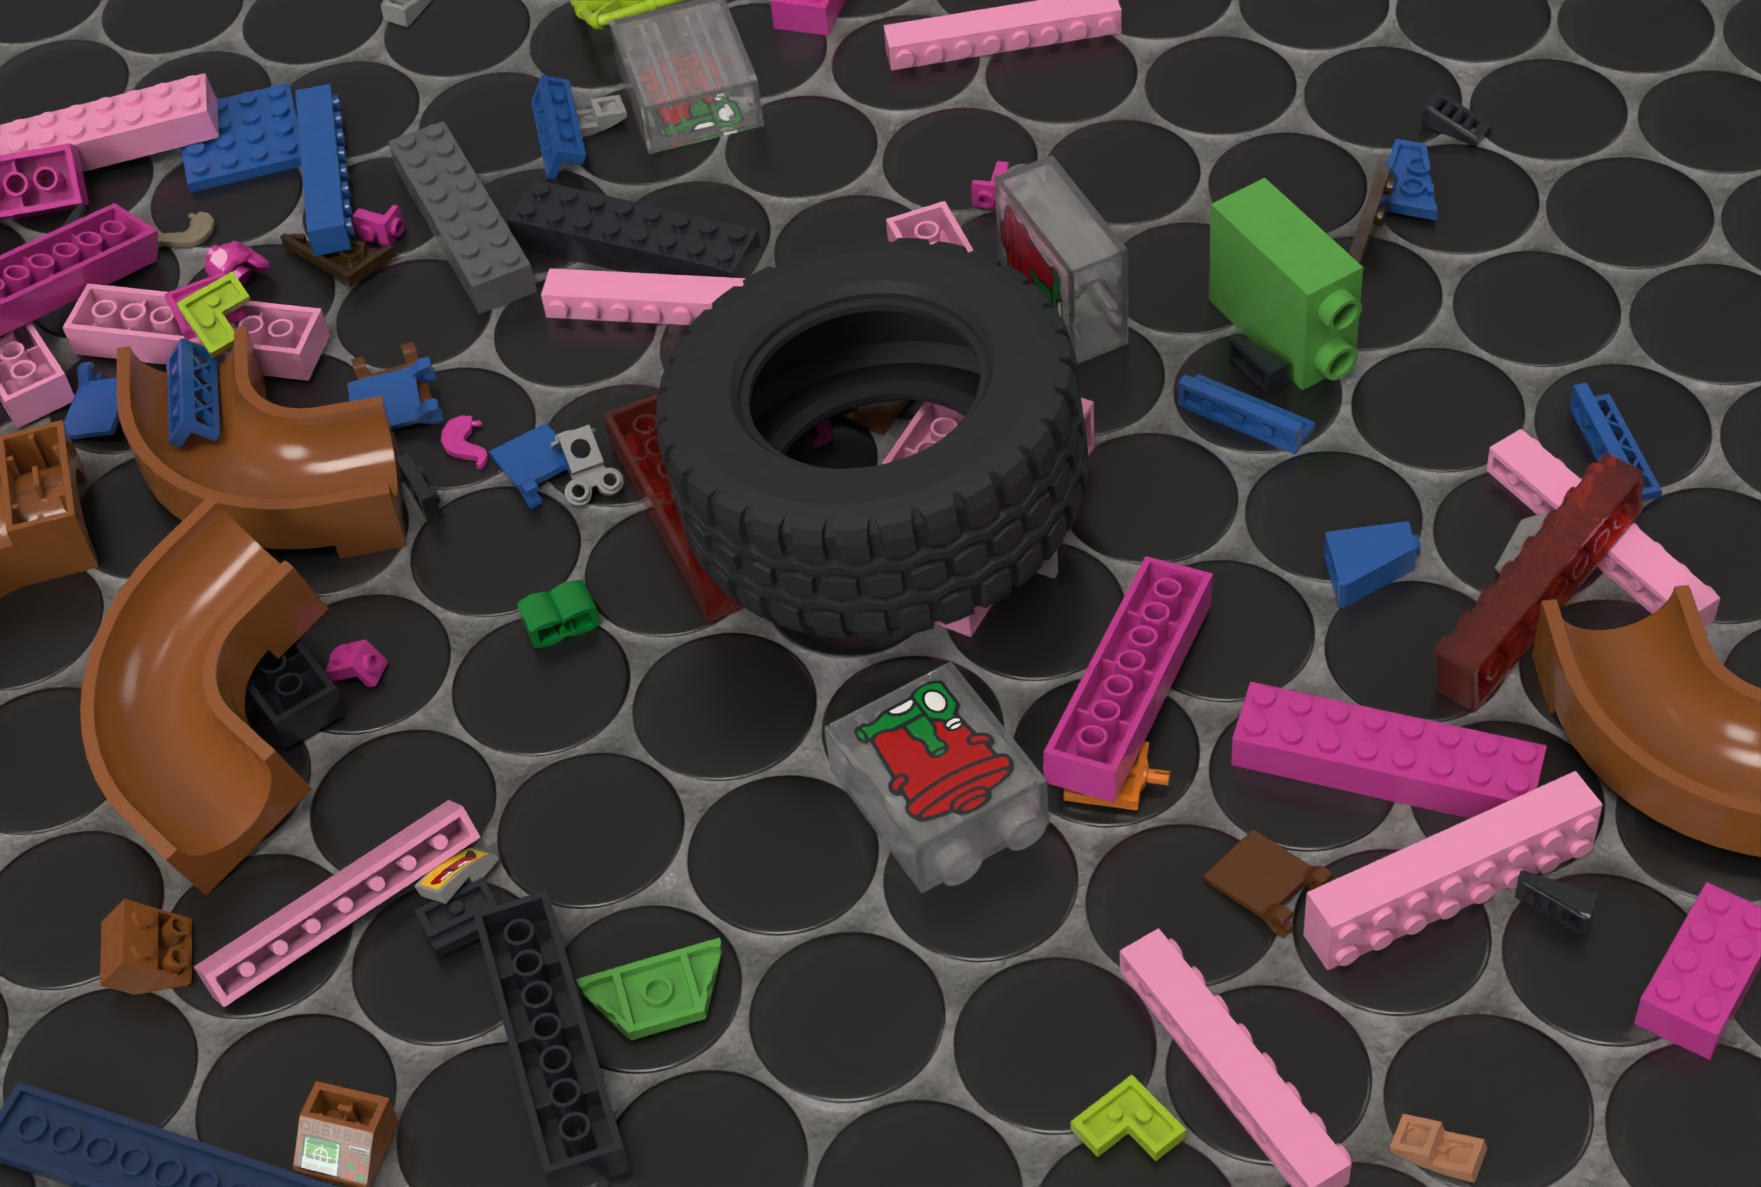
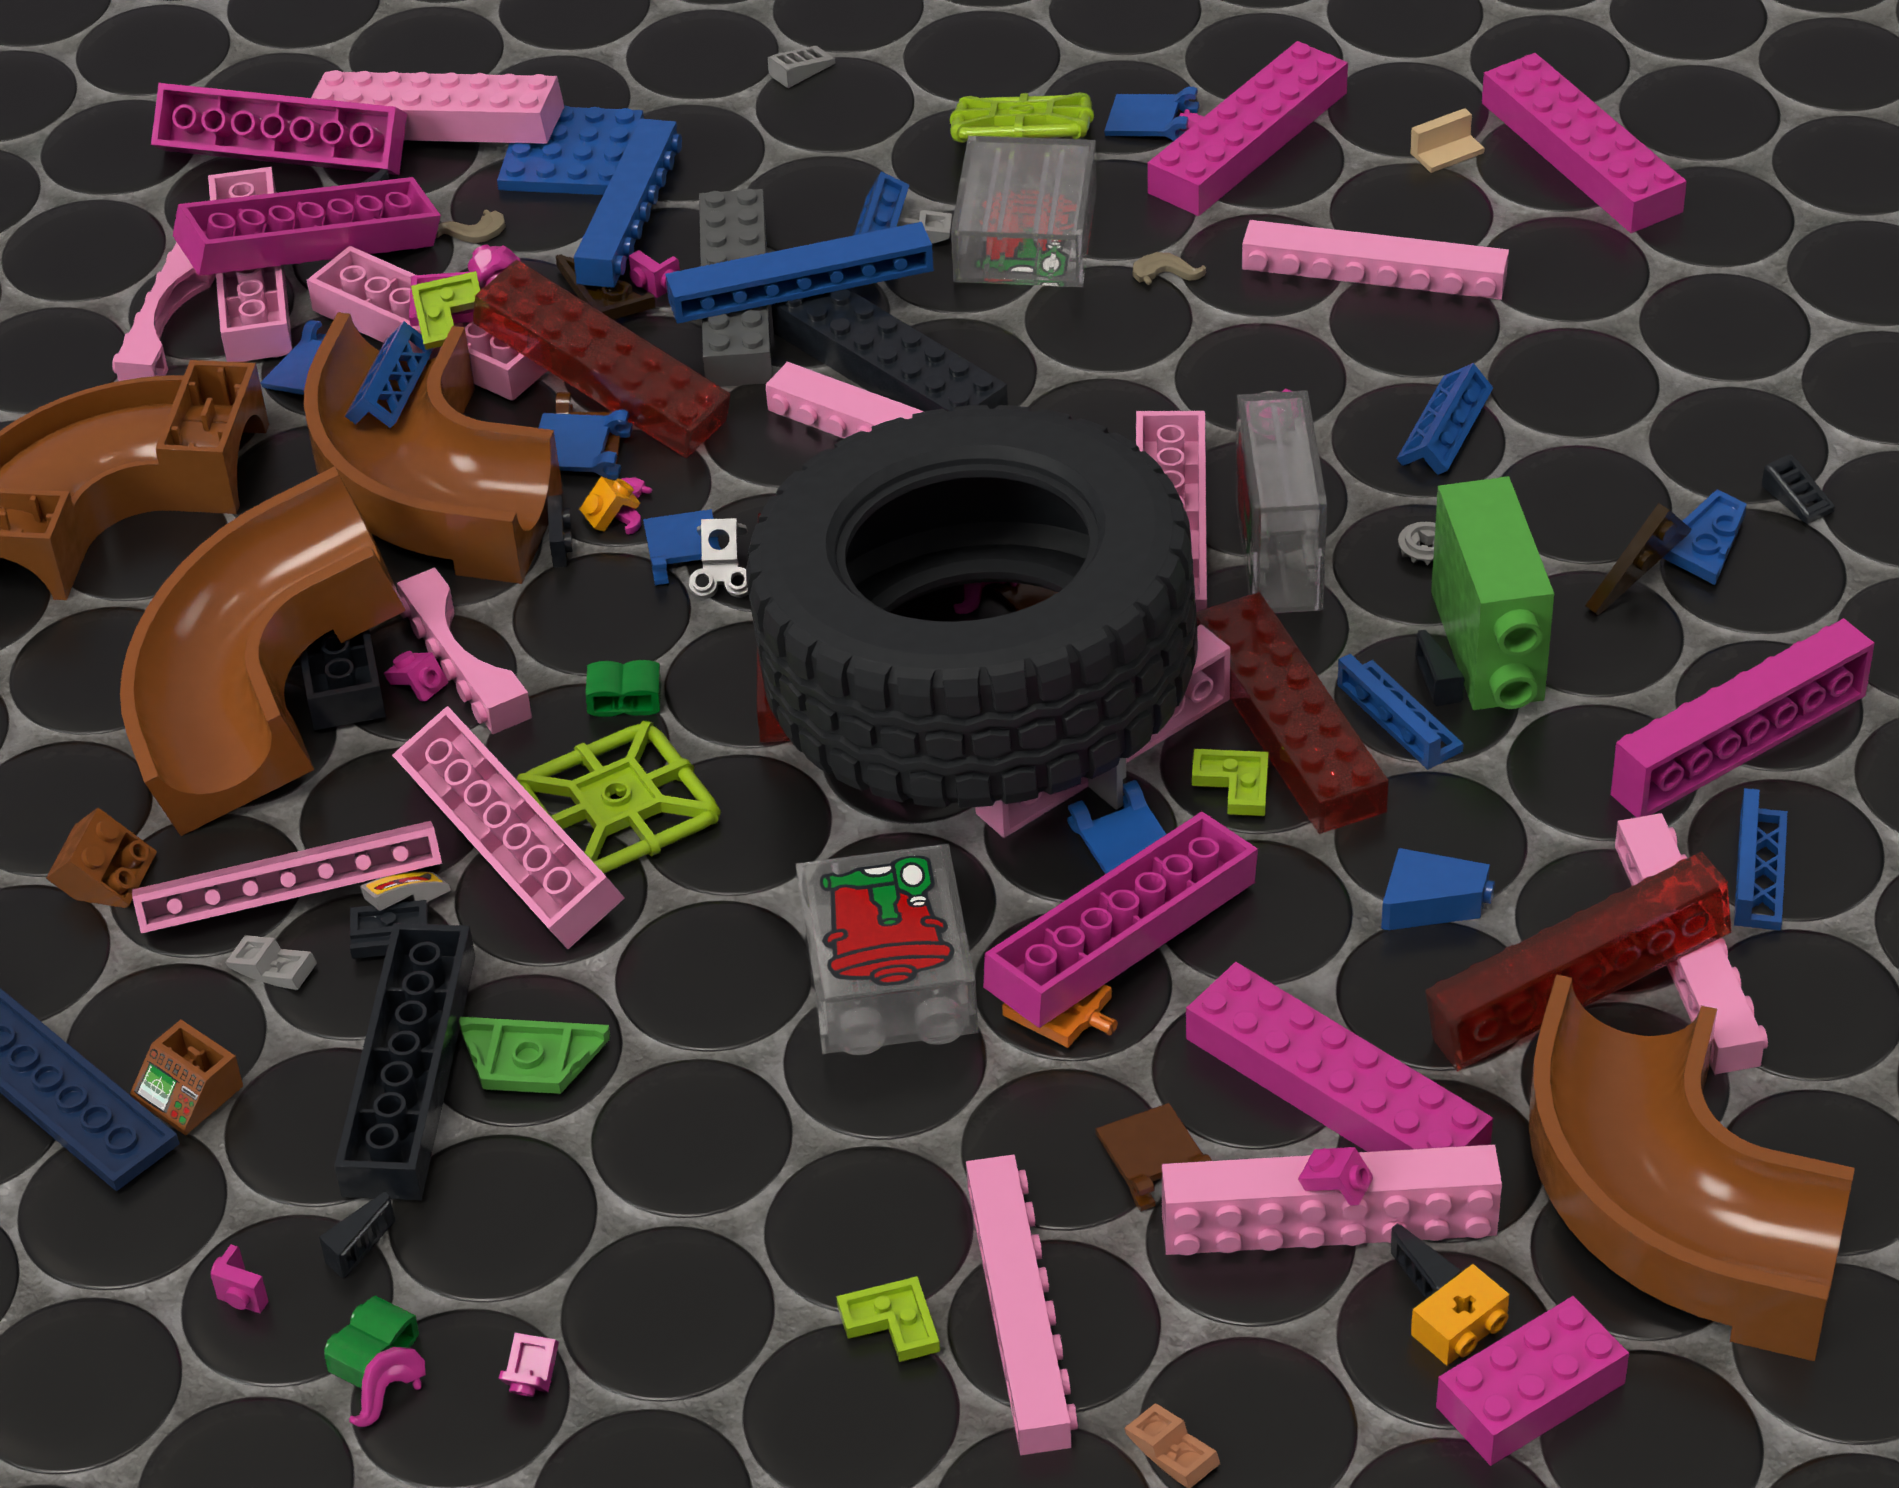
camera: 20 degrees right, 5 degrees down
(359, 991) = (267, 962): none -> light grey slope
(380, 315) = (601, 358): none -> clear red brick
(438, 657) = (492, 691): none -> bright pink arch
(450, 446) = (606, 500): none -> light orange bracket
(523, 185) = (799, 272): none -> blue brick
(528, 781) = (508, 827): none -> bright pink brick
(608, 737) = (626, 779): none -> lime plate
(814, 89) = (1151, 265): none -> dark tan piece
(1077, 603) = (1119, 834): none -> blue flag
(1144, 141) = (1447, 419): none -> blue fence
(1144, 508) = (1240, 771): none -> lime plate
(1177, 450) = (1296, 717): none -> clear red brick
(1182, 249) = (1410, 539): none -> light grey gear
(1465, 845) = (1337, 1170): none -> dark pink bracket
(1534, 327) = (1741, 718): none -> dark pink brick
(1613, 933) = (1460, 1315): none -> light orange brick

